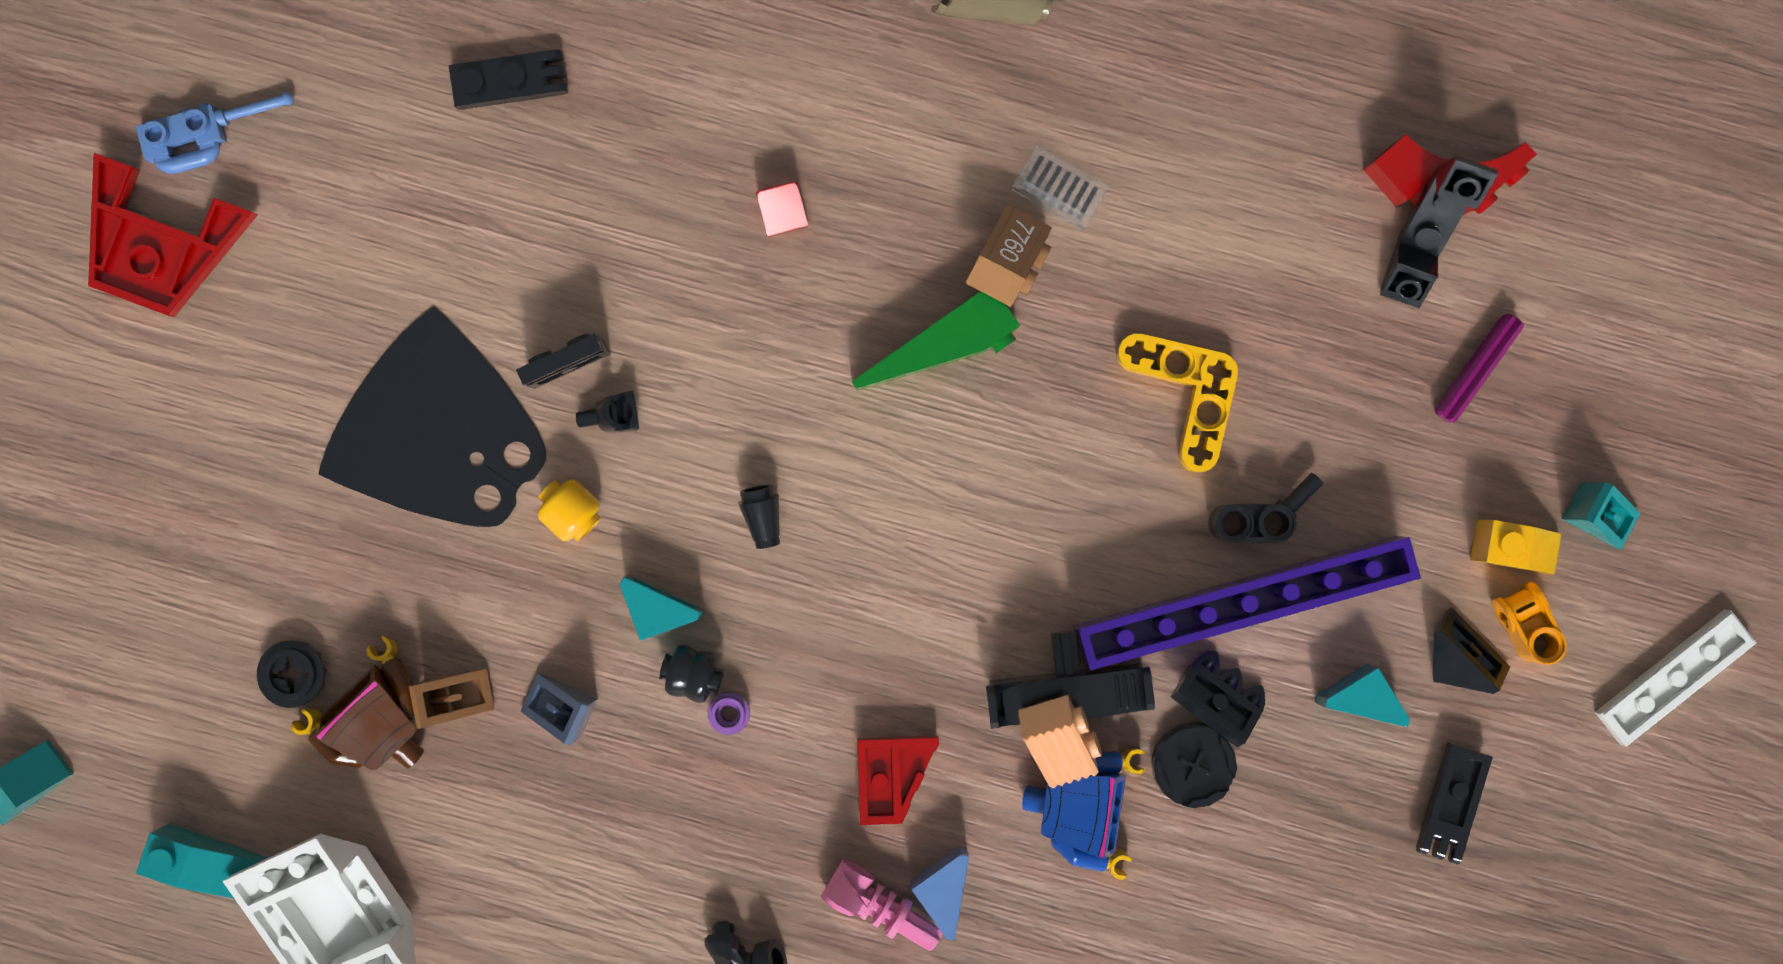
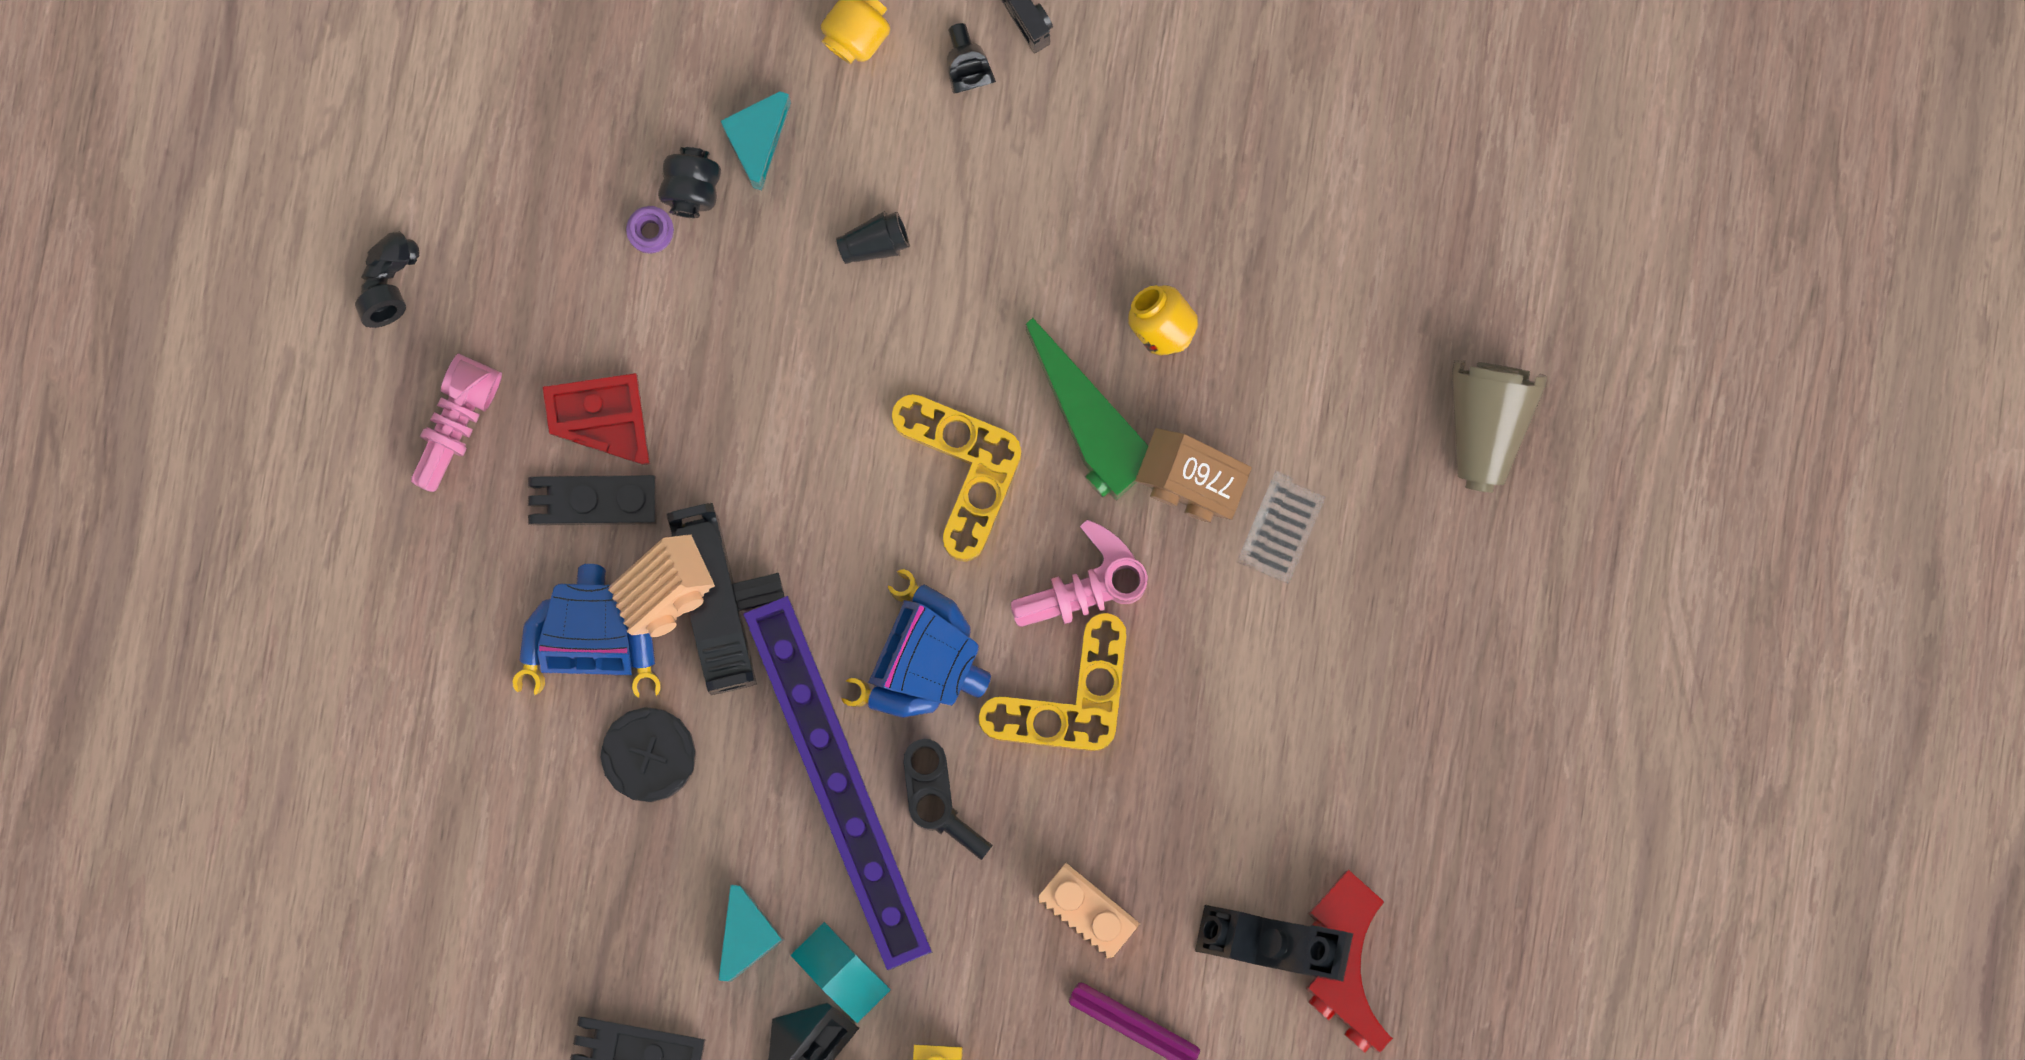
camera: 90 degrees right, 5 degrees down
(558, 708) = (635, 43): sand blue slope -> none
(782, 208) = (1217, 222): slope -> none
(866, 266) = (1162, 319): none -> yellow head
(942, 890) = (477, 487): medium blue slope -> none
(964, 788) = (594, 500): none -> black hinge
(979, 445) = (981, 469): none -> yellow beam
(1098, 364) = (1085, 592): none -> bright pink piece
(1142, 514) = (924, 657): none -> blue torso
(1219, 699) = (725, 771): black plate -> none
(1380, 395) = (1088, 911): none -> light nougat brick
(1403, 619) = (840, 972): none -> teal slope

